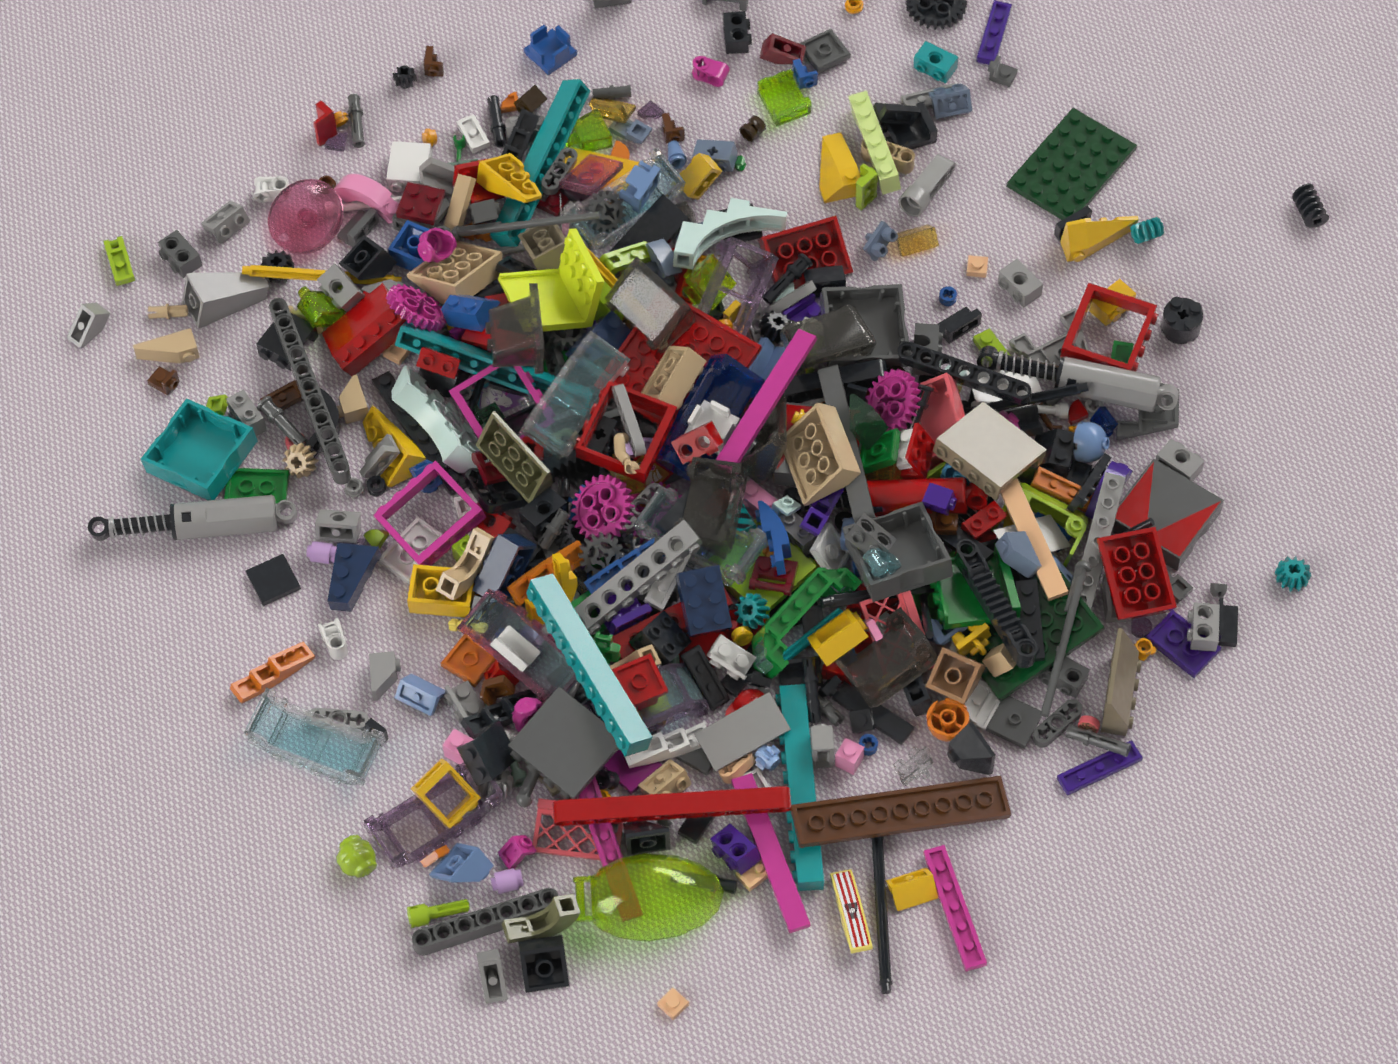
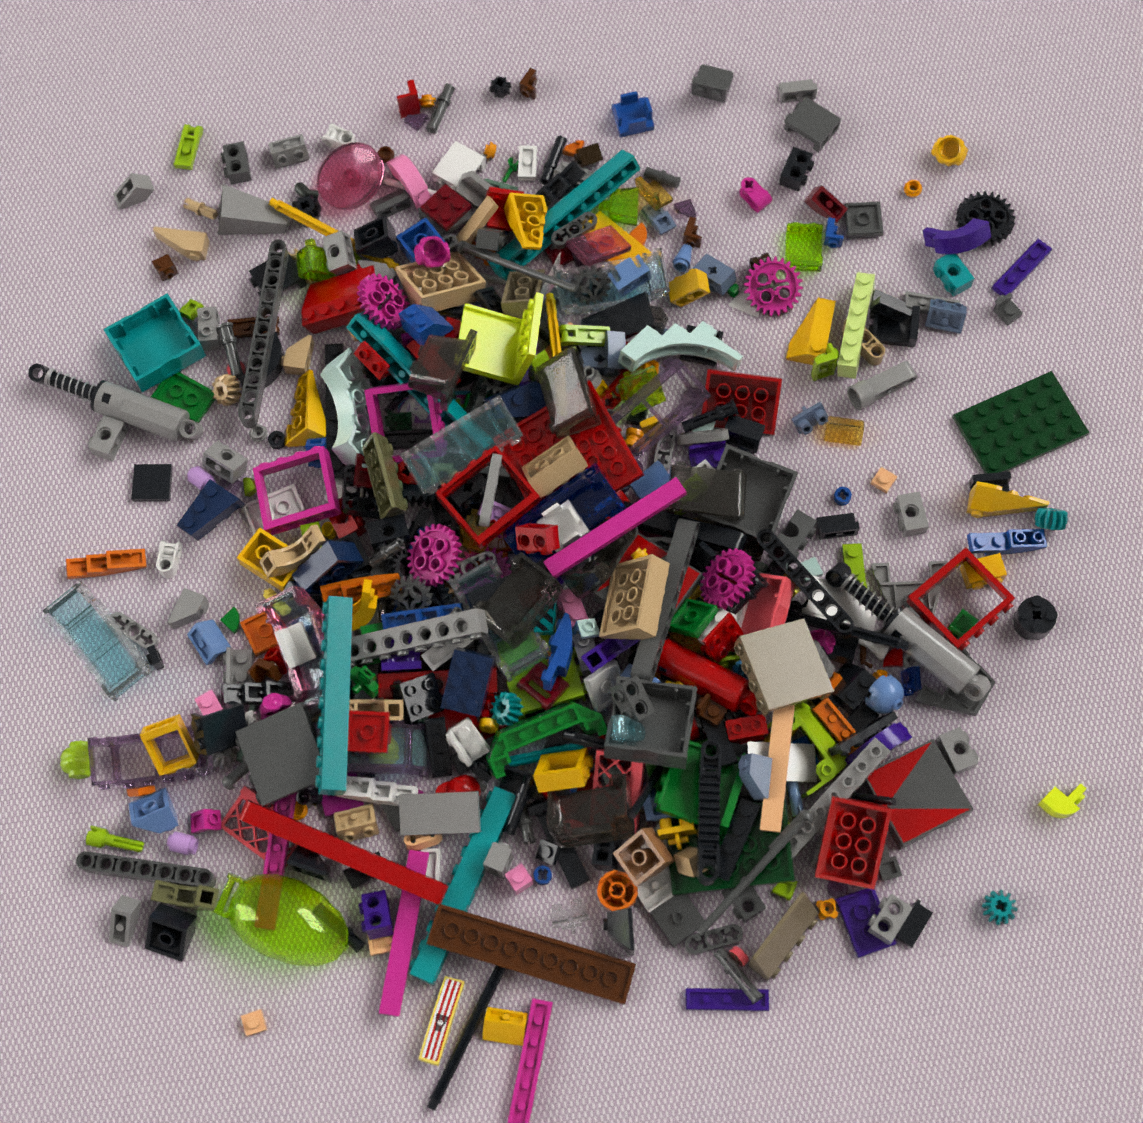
camera: 30 degrees right, 10 degrees up
(204, 569) = (107, 448): none -> light grey brick
(261, 250) = (301, 189): none -> pearl dark grey arm
(380, 457) = (289, 418): light grey panel -> none
(431, 665) = (231, 620): none -> green tile
(620, 440) = (473, 504): tan arm -> none
(759, 167) = (740, 303): none -> white sticker
(768, 757) = (451, 845): light blue gear -> none
(771, 325) = (672, 449): black gear -> none
(787, 156) = (776, 302): none -> dark pink gear
(865, 422) = (690, 588): clear green slope -> none
(873, 629) = (594, 780): bright pink tile -> none
(924, 30) = (958, 240): none -> dark purple arch
(939, 499) = (712, 692): dark purple brick -> none
(1096, 651) = (785, 890): none -> lime tile
(1121, 267) = (1007, 542): none -> blue slope
(1216, 588) = (925, 886): dark grey hinge -> none
(1295, 465) = (1060, 805): none -> neon yellow brick

